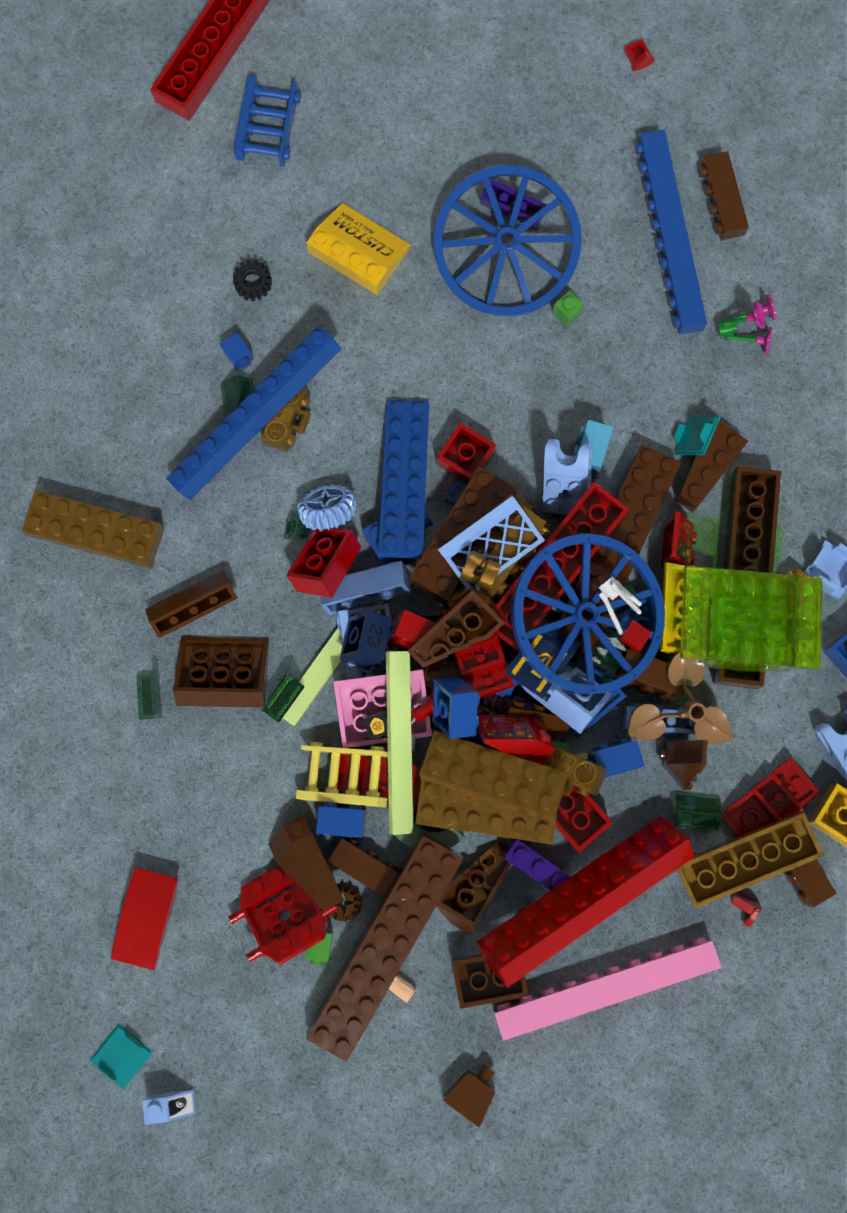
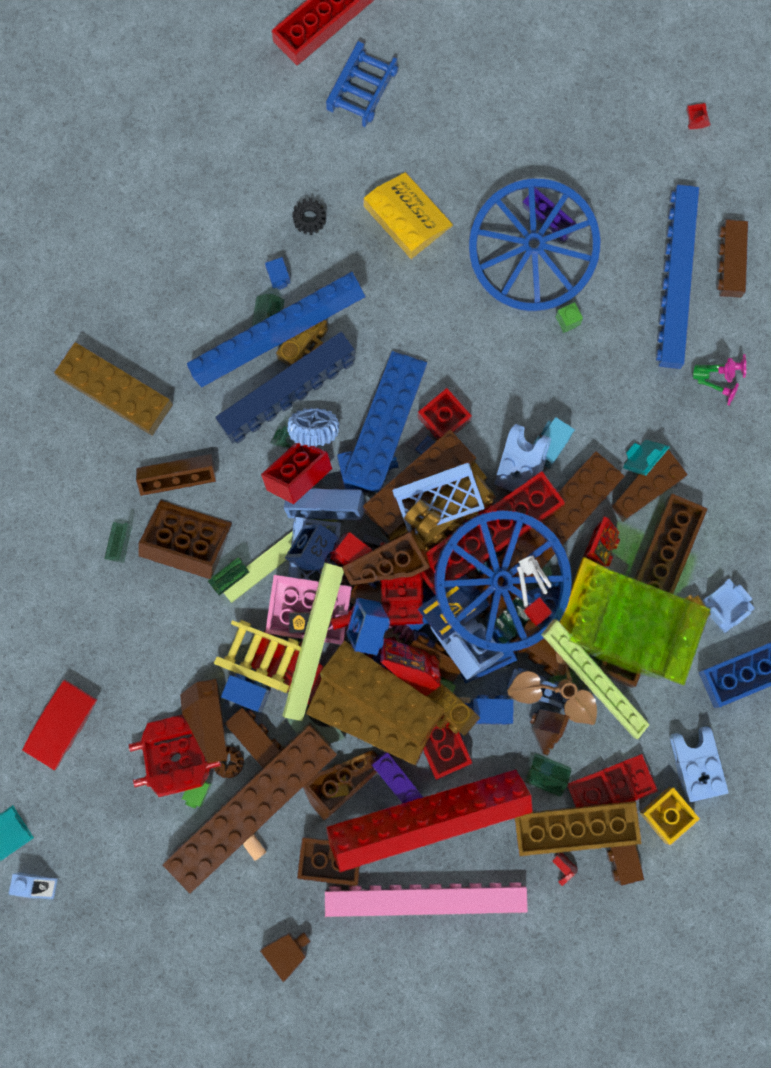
camera: 15 degrees right, 0 degrees up
(284, 473) = (286, 388): none -> dark blue brick
(718, 691) = (595, 679): none -> yellowish green tile

